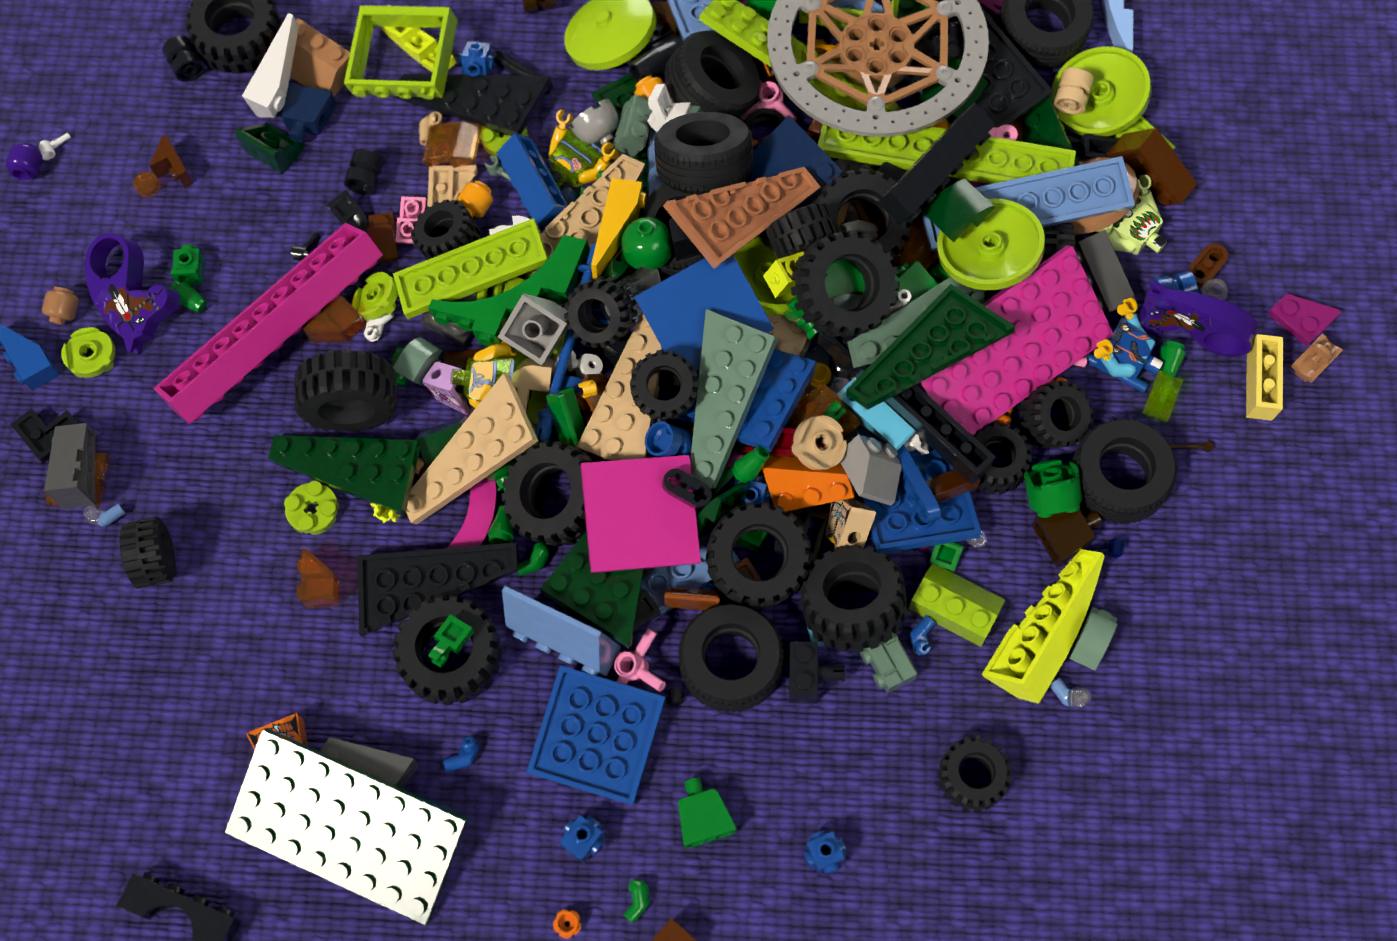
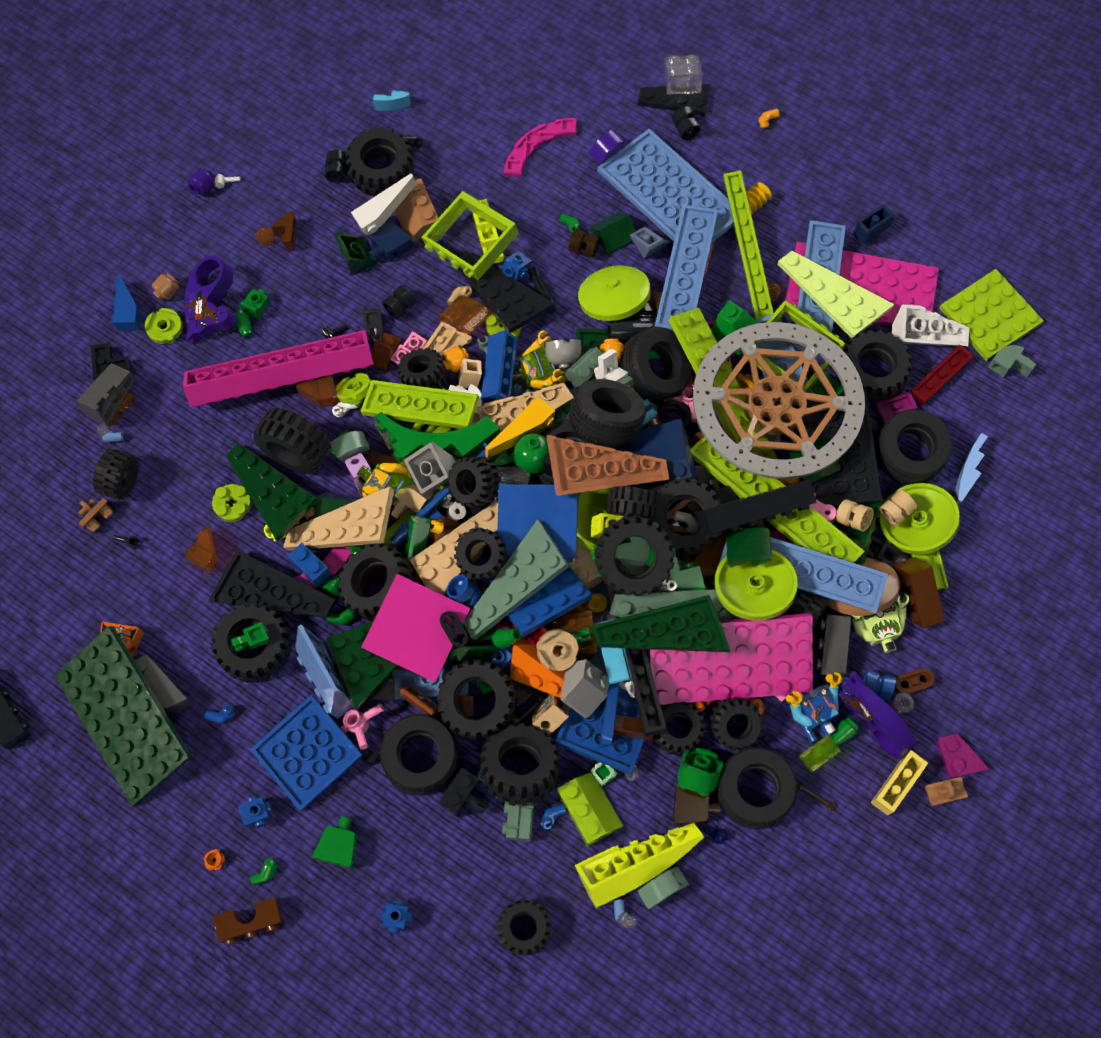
camera: 30 degrees right, 0 degrees up
(153, 604) = (88, 520): none -> medium nougat hips
(211, 624) = (127, 540): none -> black hand
(459, 522) = (309, 565): none -> blue brick
(502, 205) = (469, 373): none -> tan brick
(1027, 122) = (854, 515): none -> tan wheel

